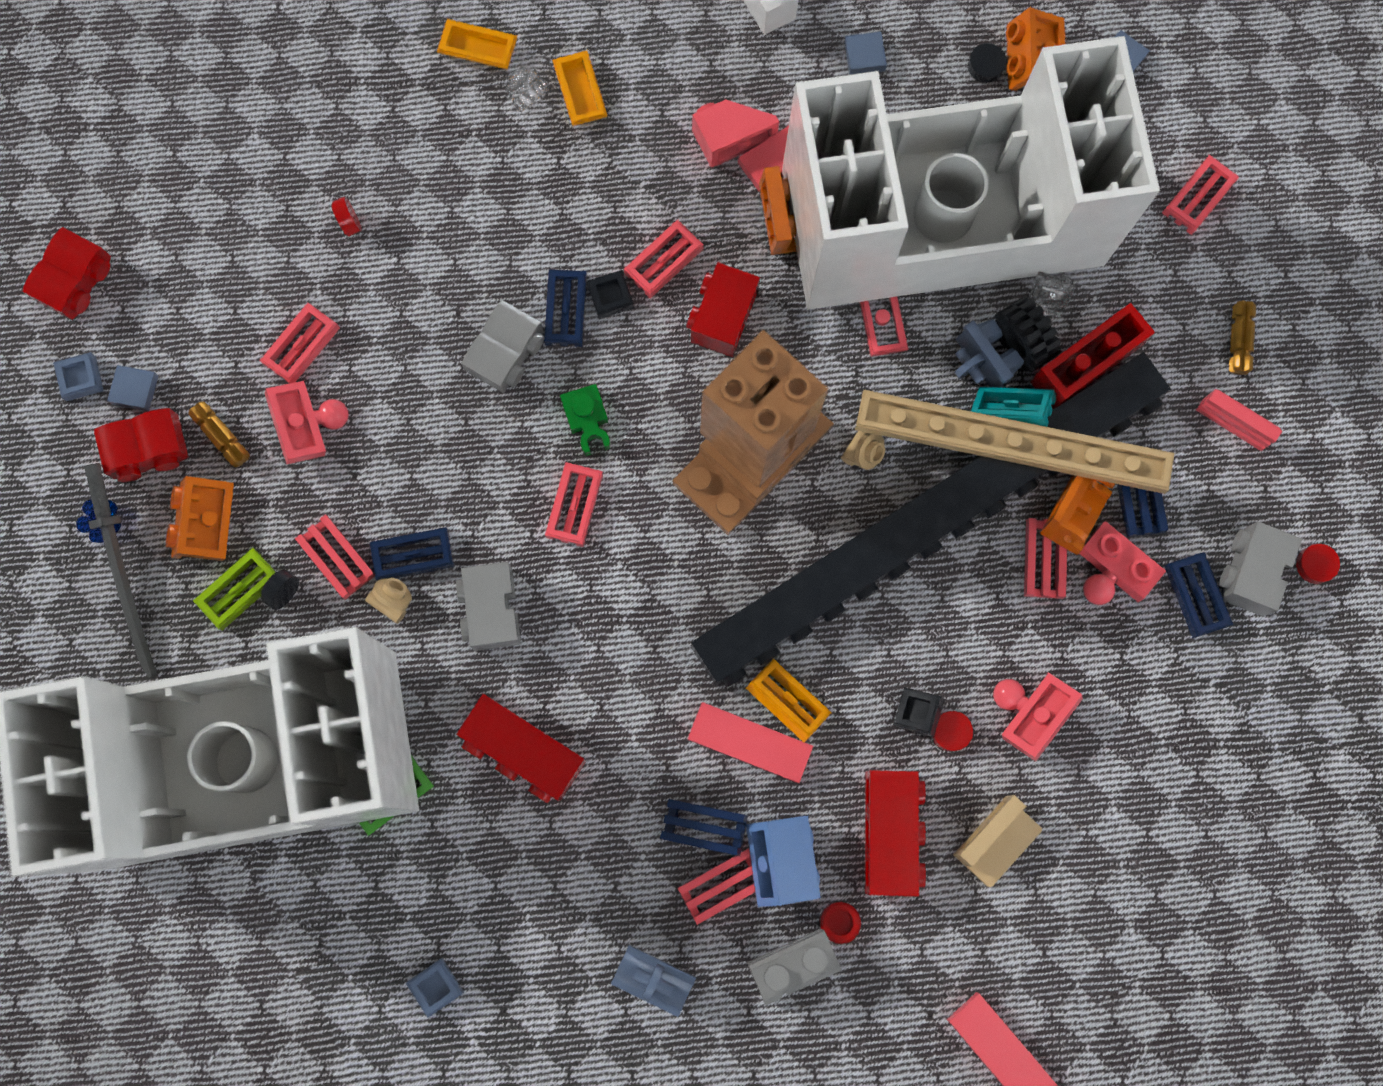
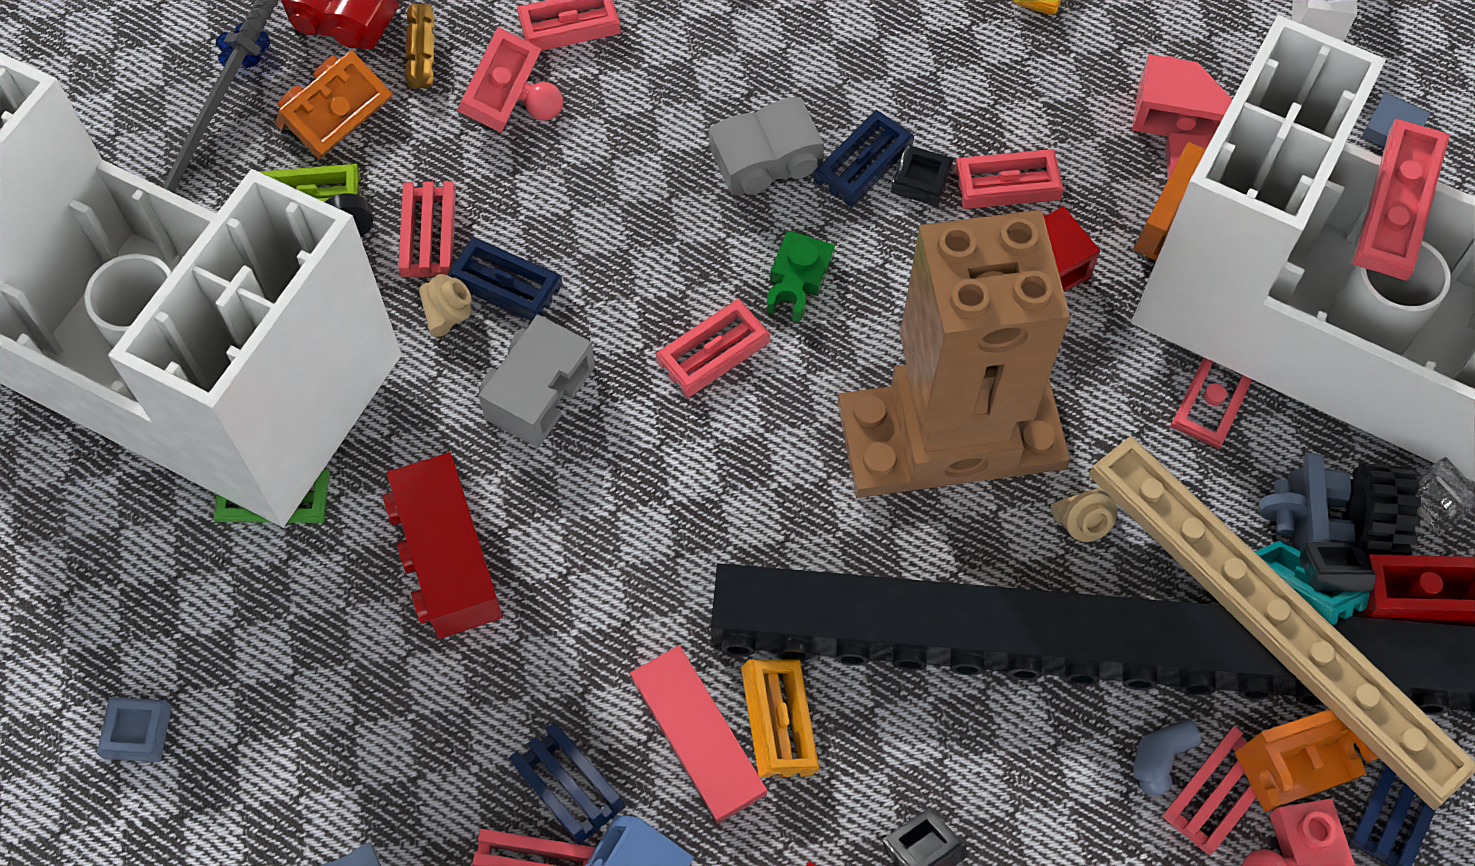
camera: 40 degrees right, 15 degrees down
(925, 136) = (1401, 199): none -> coral tile
(999, 564) = (1157, 753): none -> sand blue arm
(1027, 387) = (1337, 566): none -> black tile

